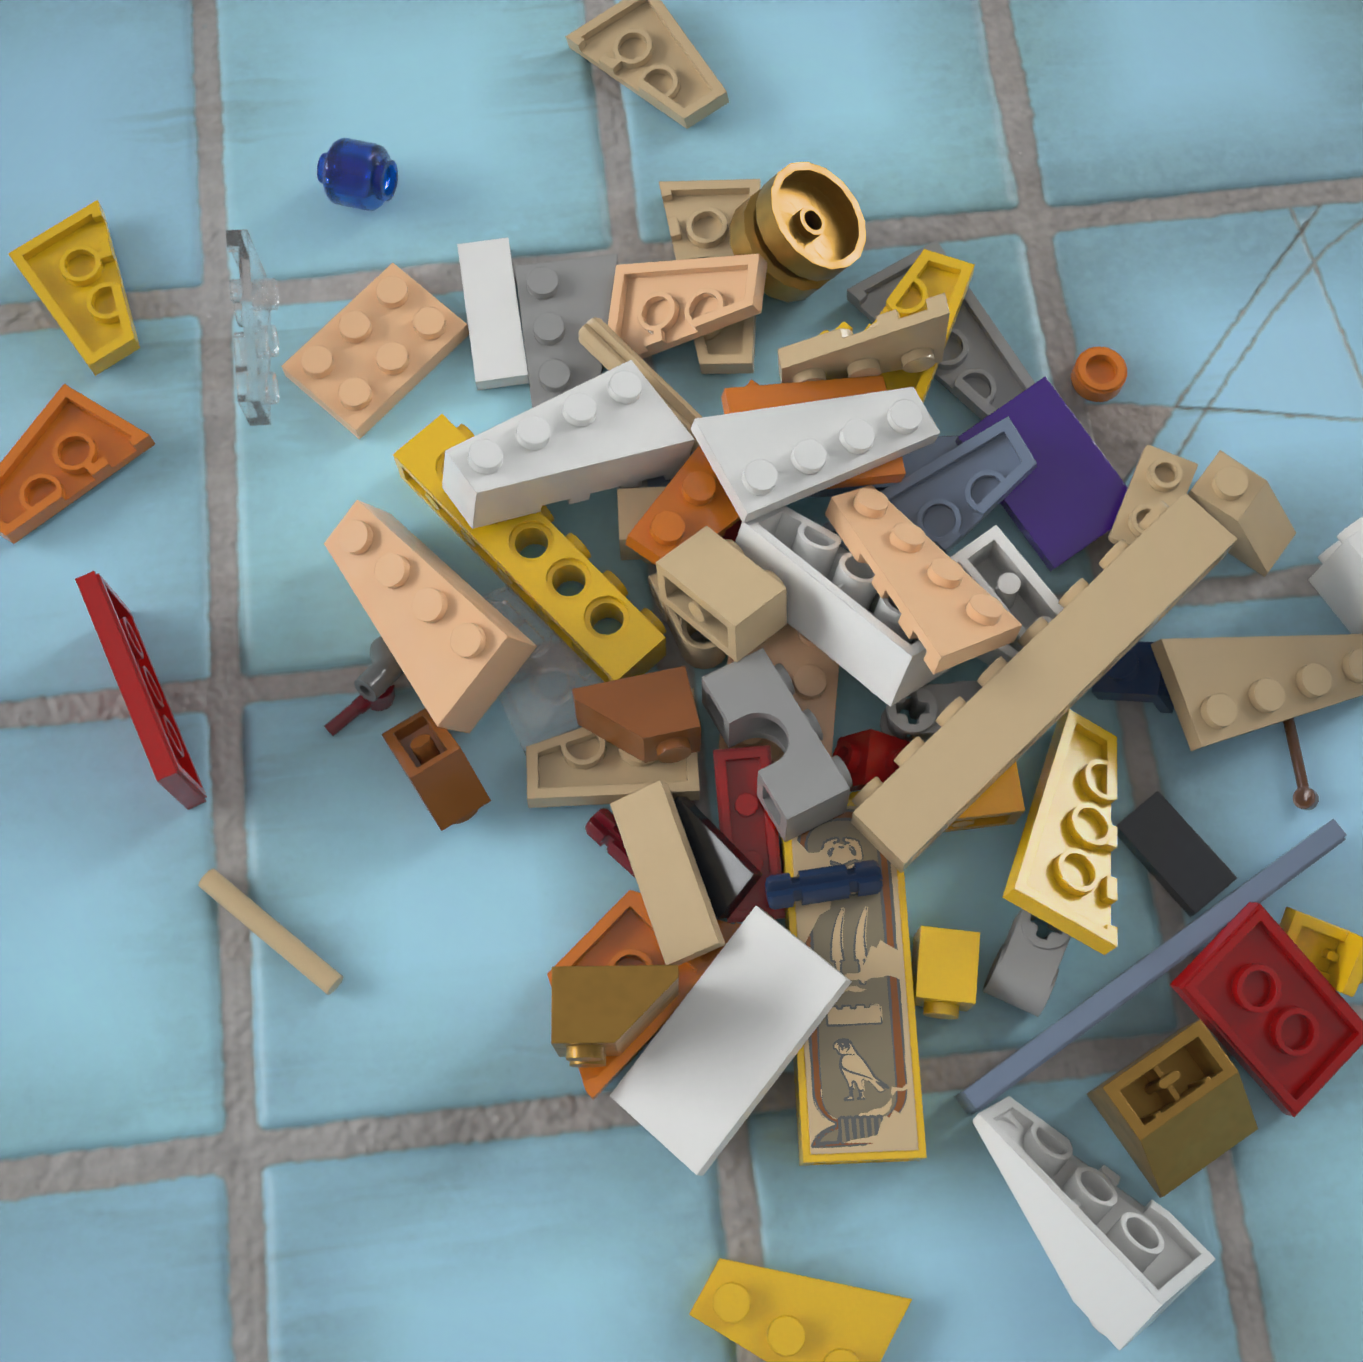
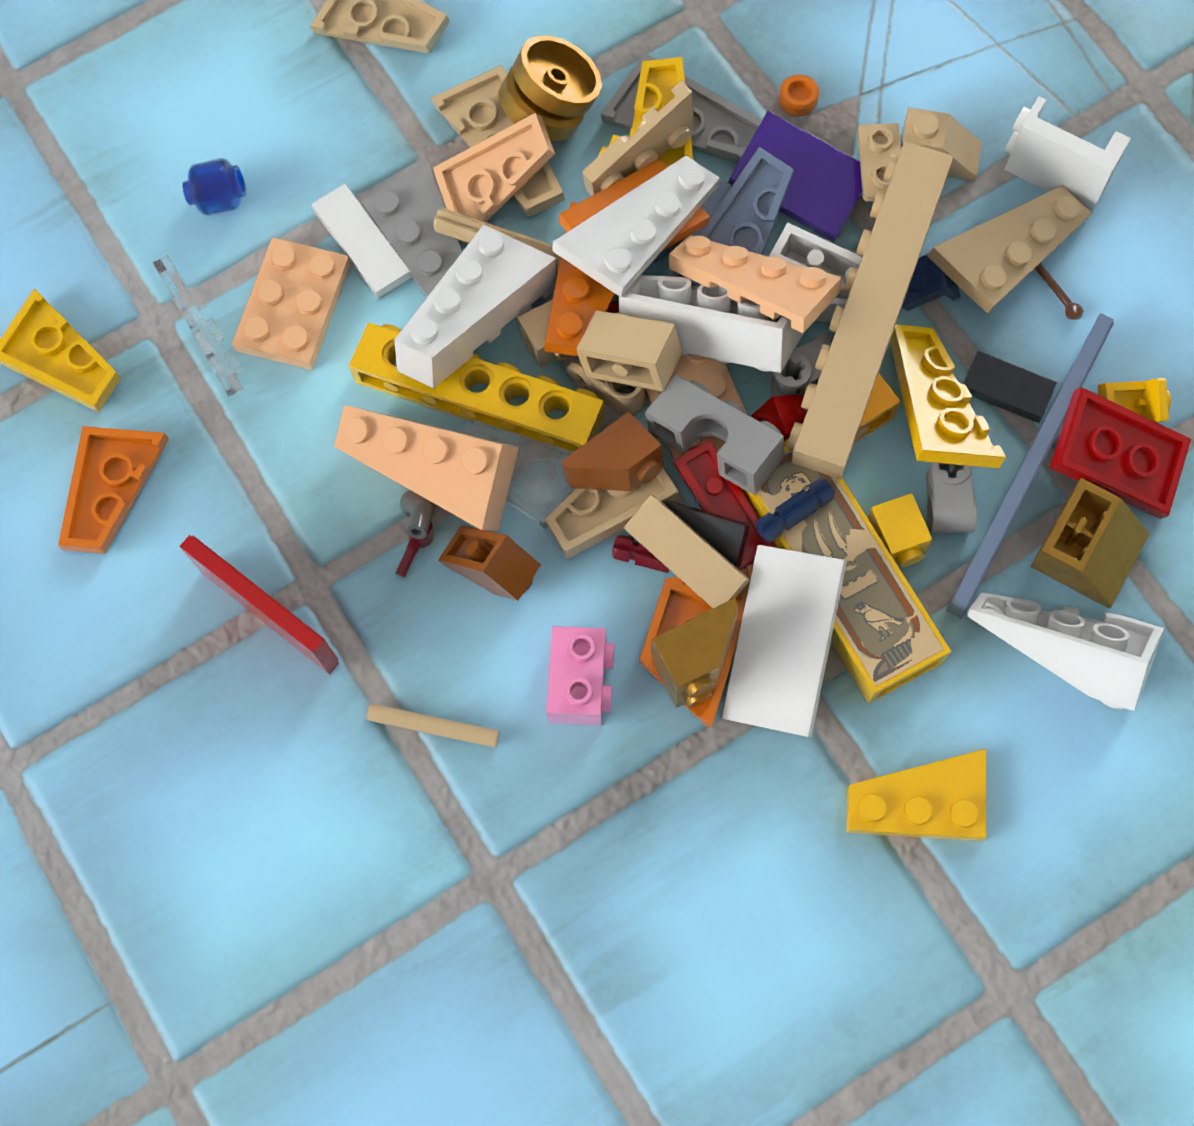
camera: 20 degrees left, 0 degrees up
(466, 957) = (578, 675): none -> bright pink brick

